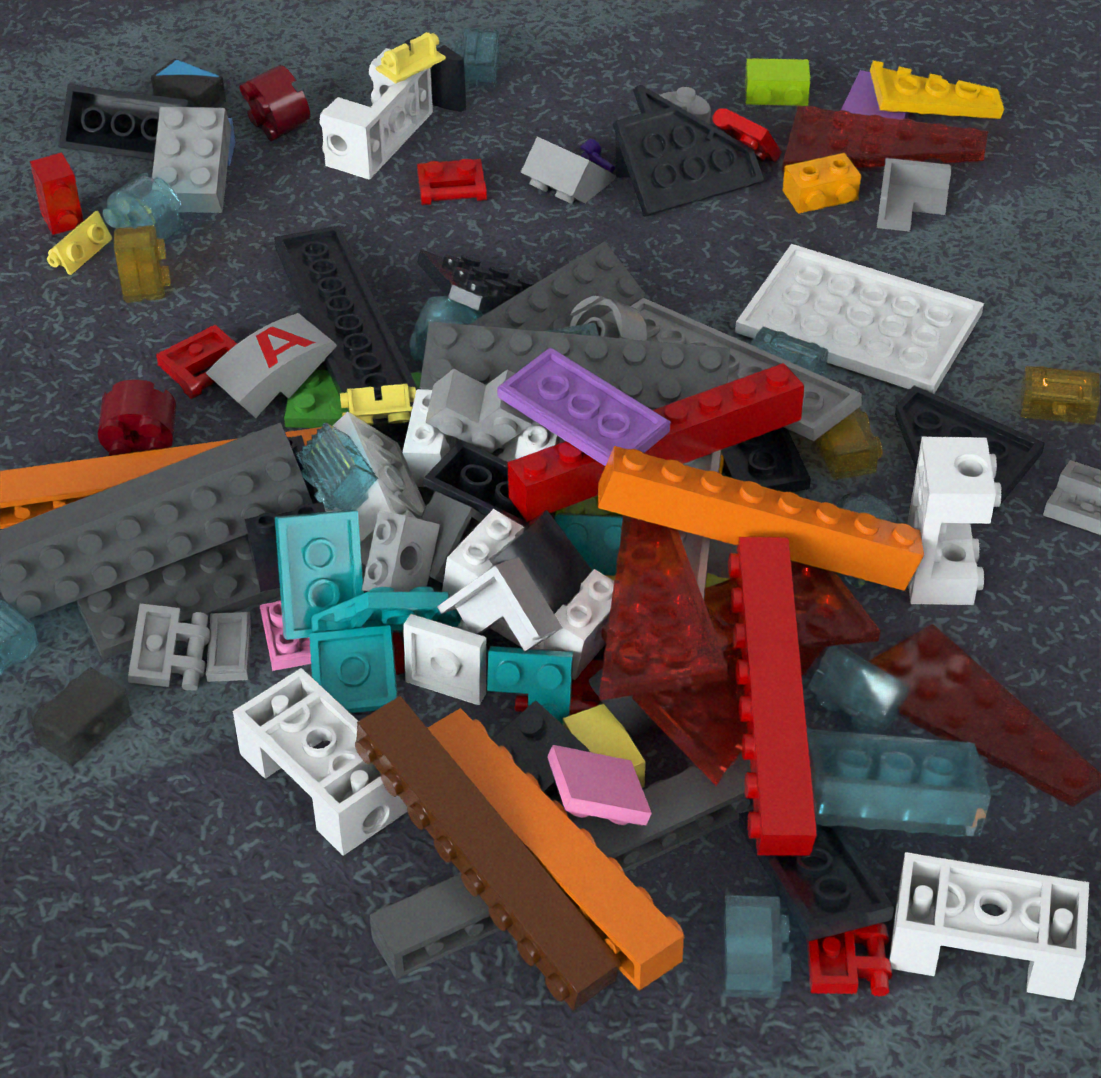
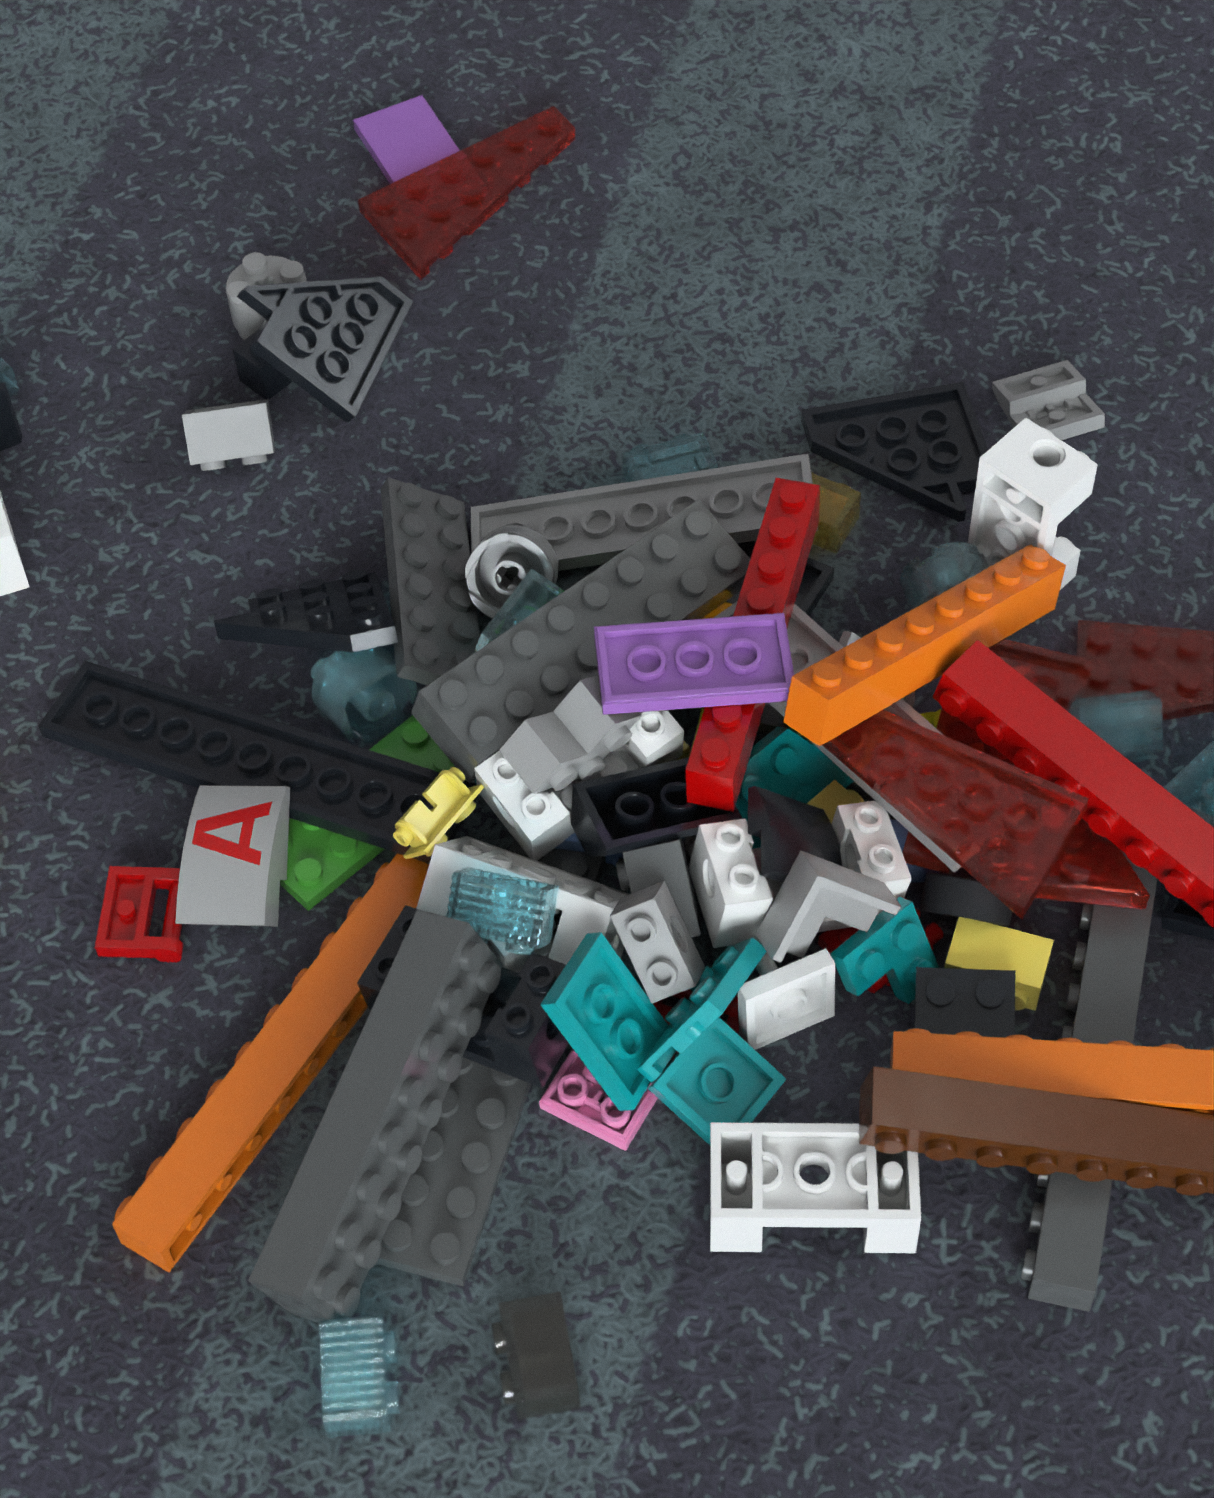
camera: 45 degrees left, 10 degrees up
(136, 418) = (188, 1031): dark red brick -> none
(155, 644) = (516, 1227): light grey plate -> none
(228, 646) = (562, 1165): light grey tile -> none
(451, 180) = (114, 519): red plate -> none
(592, 153) = (216, 394): dark purple hand -> none
(599, 786) = (1073, 994): bright pink tile -> none
(747, 133) = (358, 264): red plate -> none
(777, 82) = (298, 187): lime brick -> none
(821, 183) = (473, 266): light orange brick -> none
(863, 317) = (670, 374): white plate -> none
(912, 188) = (553, 218): light grey panel -> none
(933, 95) = (454, 102): yellow wing -> none
(1060, 395) = (917, 326): clear yellow brick -> none

